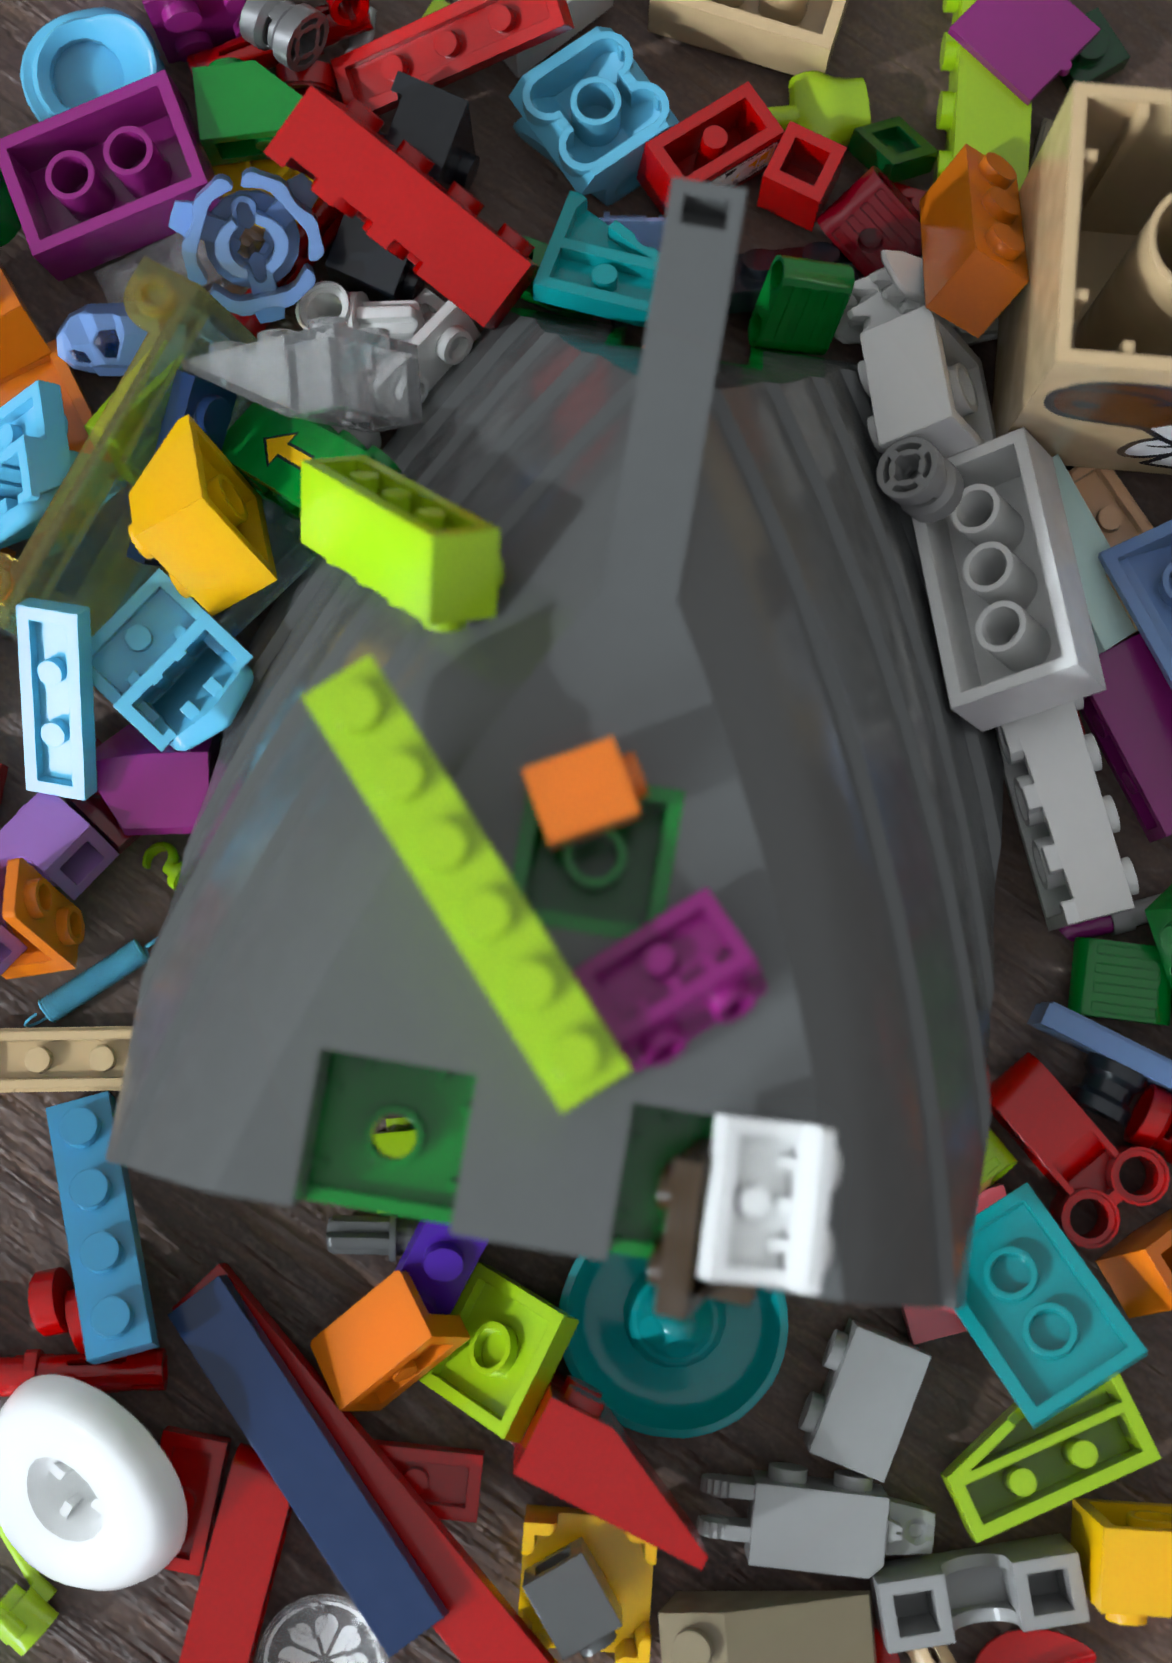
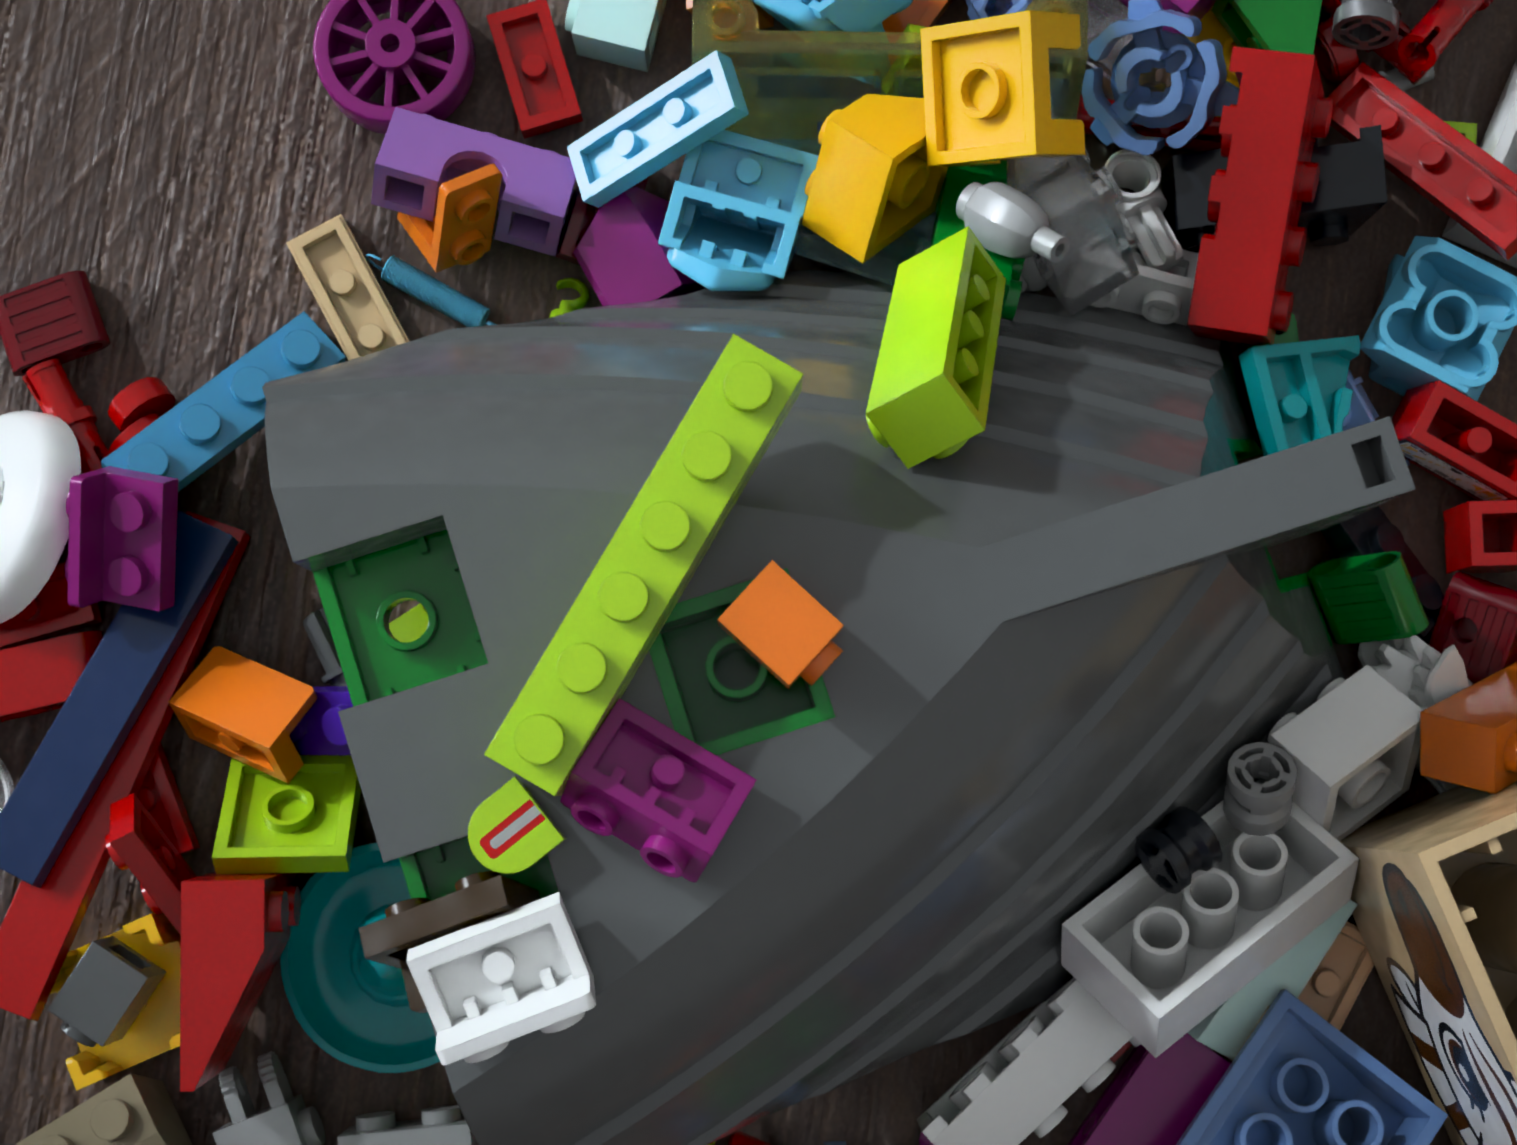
camera: 60 degrees right, 0 degrees up
(169, 1375) = (122, 538): none -> magenta bracket
(189, 377) = (992, 89): none -> yellow panel
(314, 426) = (1009, 222): none -> light grey plant
(460, 1498) = (144, 848): none -> red plate
(638, 1129) = (512, 830): none -> lime tile
(938, 575) = (1178, 849): none -> black wheel

